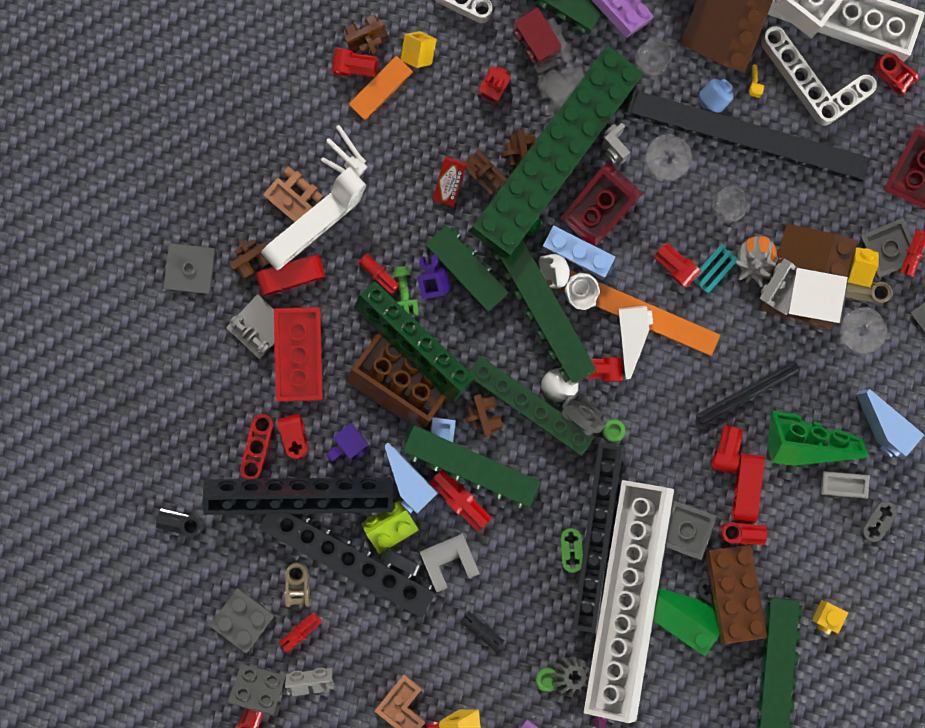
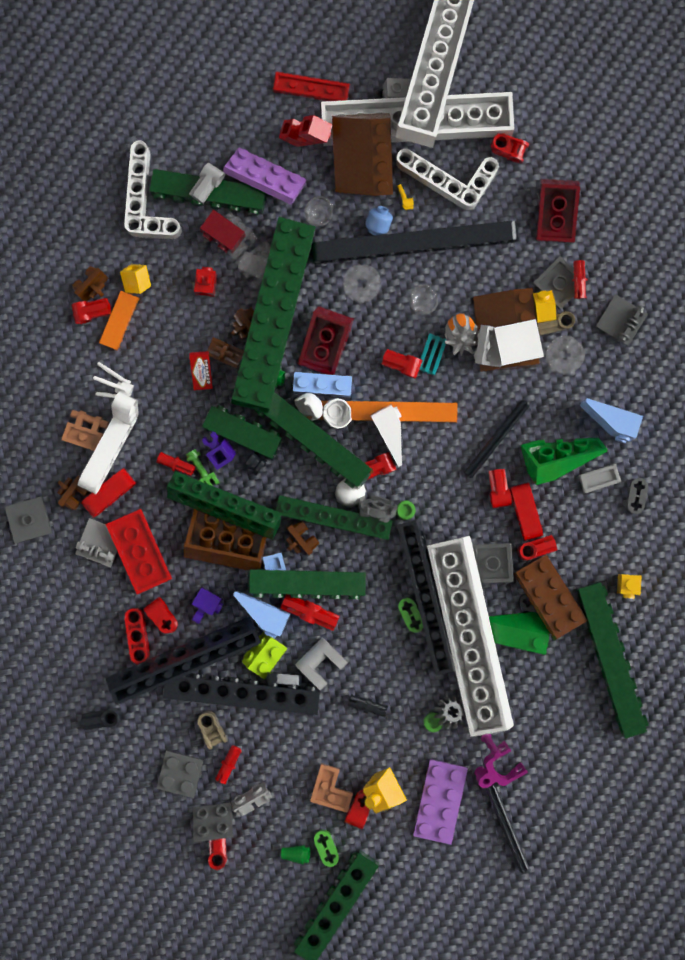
camera: 15 degrees left, 0 degrees up
(613, 146) = (319, 295): light grey bracket -> none

